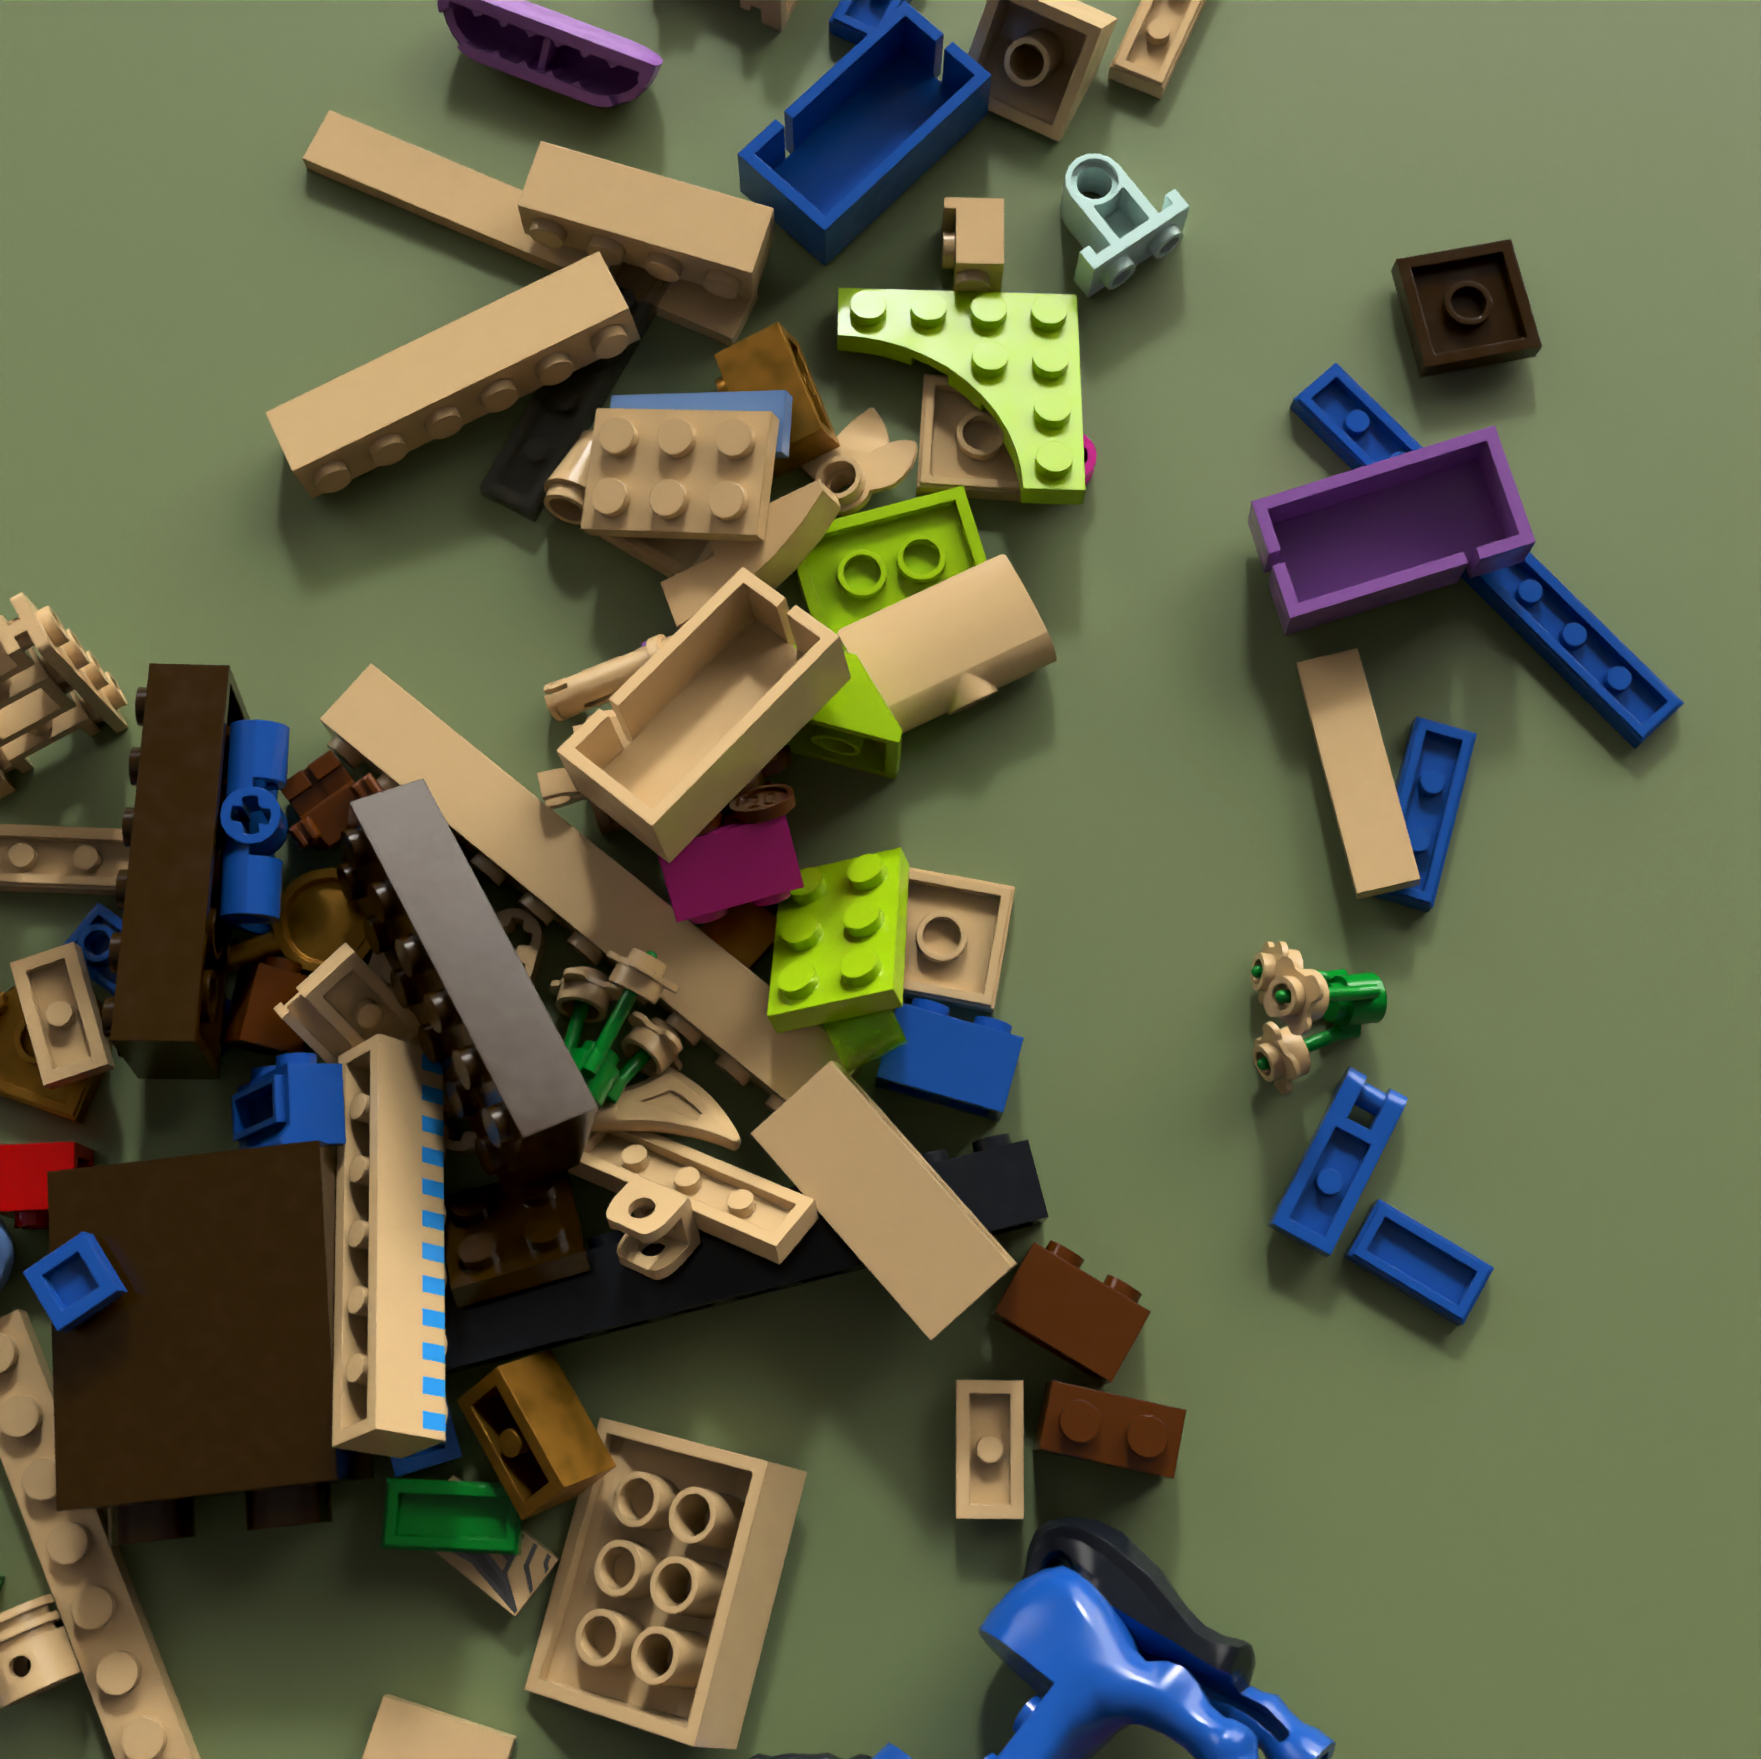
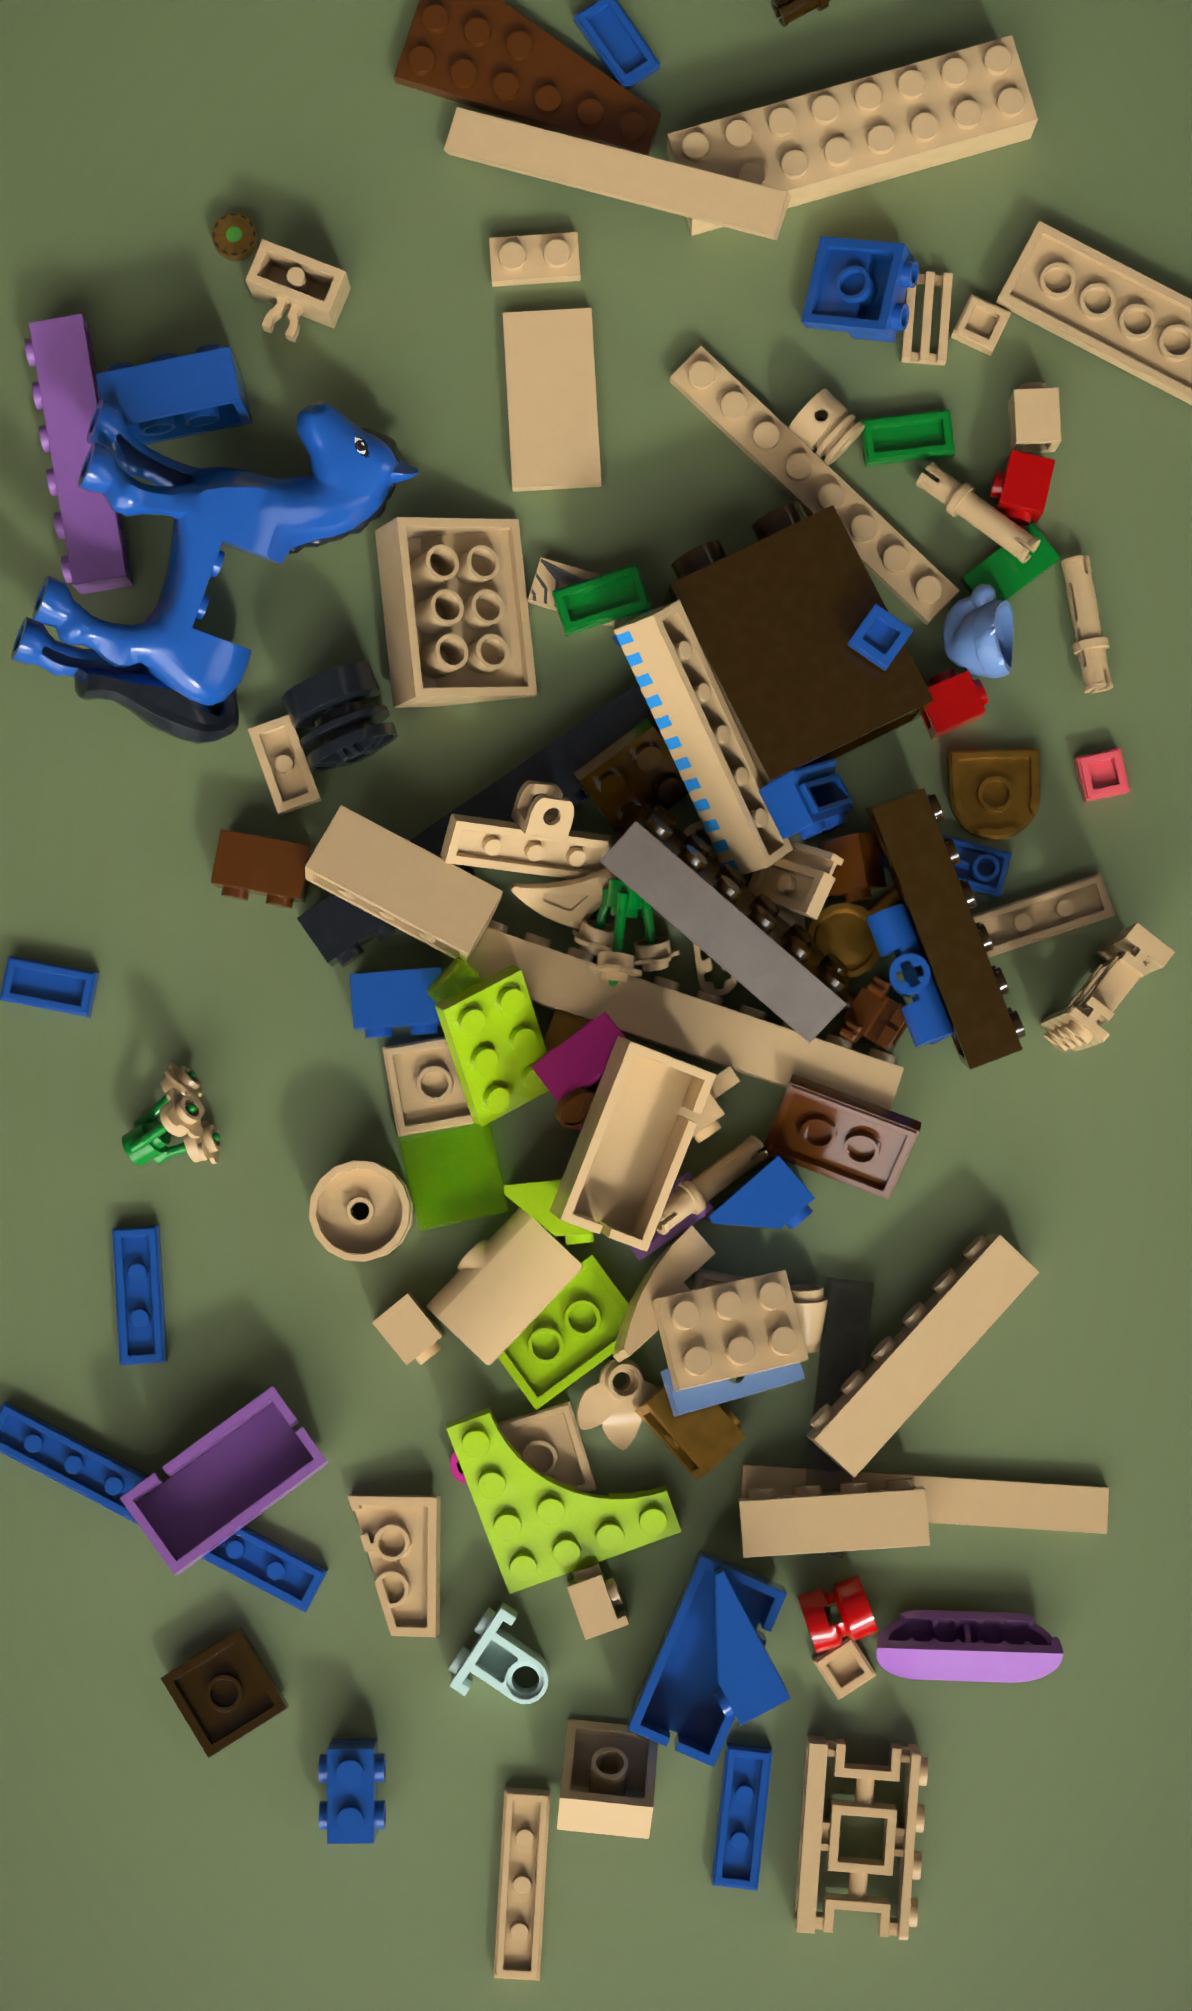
camera: 170 degrees right, 10 degrees up
(62, 1015) = (983, 809): tan plate -> none
(439, 668) = (841, 1136): none -> reddish brown tile
(535, 1433) = (569, 665): pearl gold brick -> none
(573, 618) = (766, 1200): none -> blue slope
(666, 129) = (852, 1607): none -> red wheel
(706, 82) = (844, 1667): none -> tan tile
(823, 86) = (743, 1666): none -> blue slope
(886, 1480) = (336, 707): none -> black wheel
(960, 811) = (454, 1176): none -> clear neon green tile
(1088, 639) = (410, 1330): none -> tan brick
(1089, 768) = (388, 1217): none -> tan wheel
(1109, 1429) = (213, 802): reddish brown piece -> none
(1189, 382) = (405, 1557): none -> tan wing
(1337, 1164) = (122, 1030): blue plate -> none
(1342, 158) = (352, 1780): none -> blue brick
(1358, 774) = (193, 1303): tan tile -> none

